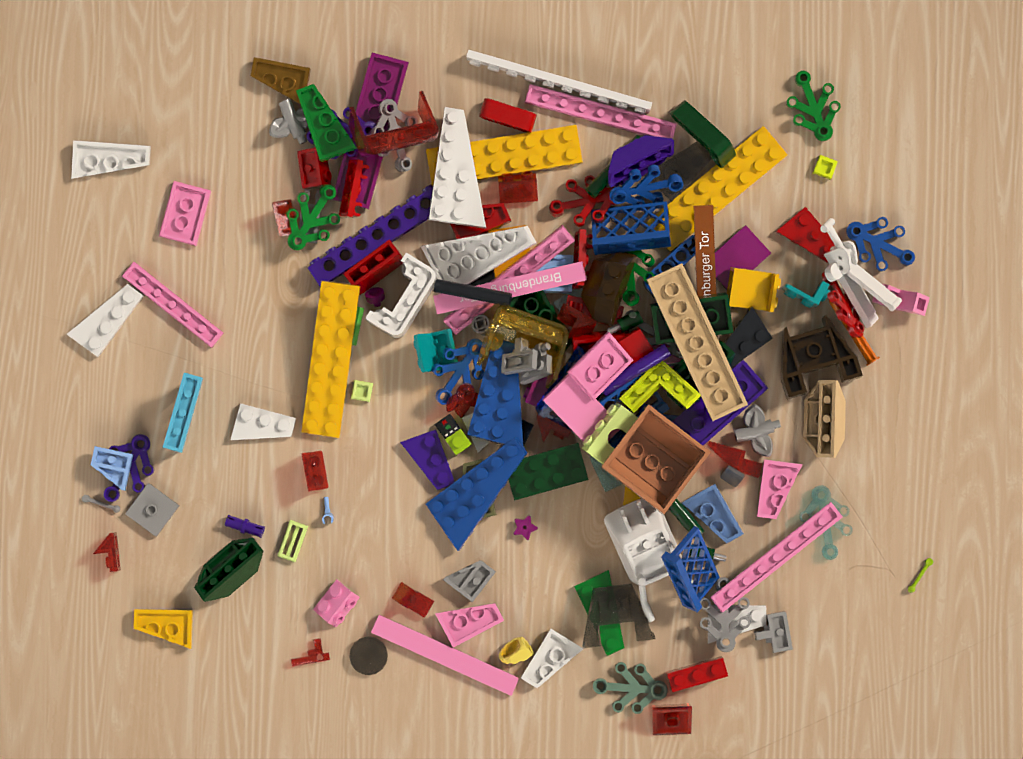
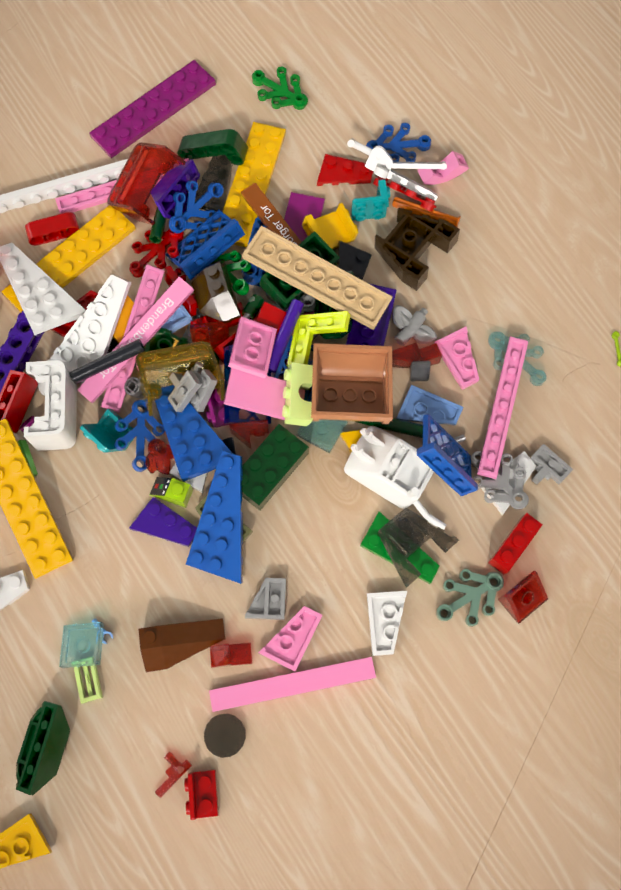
camera: 40 degrees left, 15 degrees down
(244, 526) = (33, 697): dark purple pin -> none
(305, 512) = (81, 645): none -> clear light blue tile
(315, 470) = (67, 603): clear red bracket -> none
(324, 686) = (202, 794): none -> red bracket
(336, 603) = (164, 708): bright pink bracket -> none
(362, 391) = (68, 509): yellowish green tile -> none
(375, 560) = (173, 643): none -> reddish brown wedge
(516, 651) = (351, 635): light yellow rock -> none
(518, 187) = (96, 273): clear red bracket -> none
(525, 522) = (284, 530): magenta plate -> none
(611, 123) = (140, 177): none -> clear red windscreen
(681, 44) = (152, 109): none -> magenta plate
(825, 167) = (319, 122): neon yellow tile -> none
(825, 418) = (454, 281): tan wedge -> none

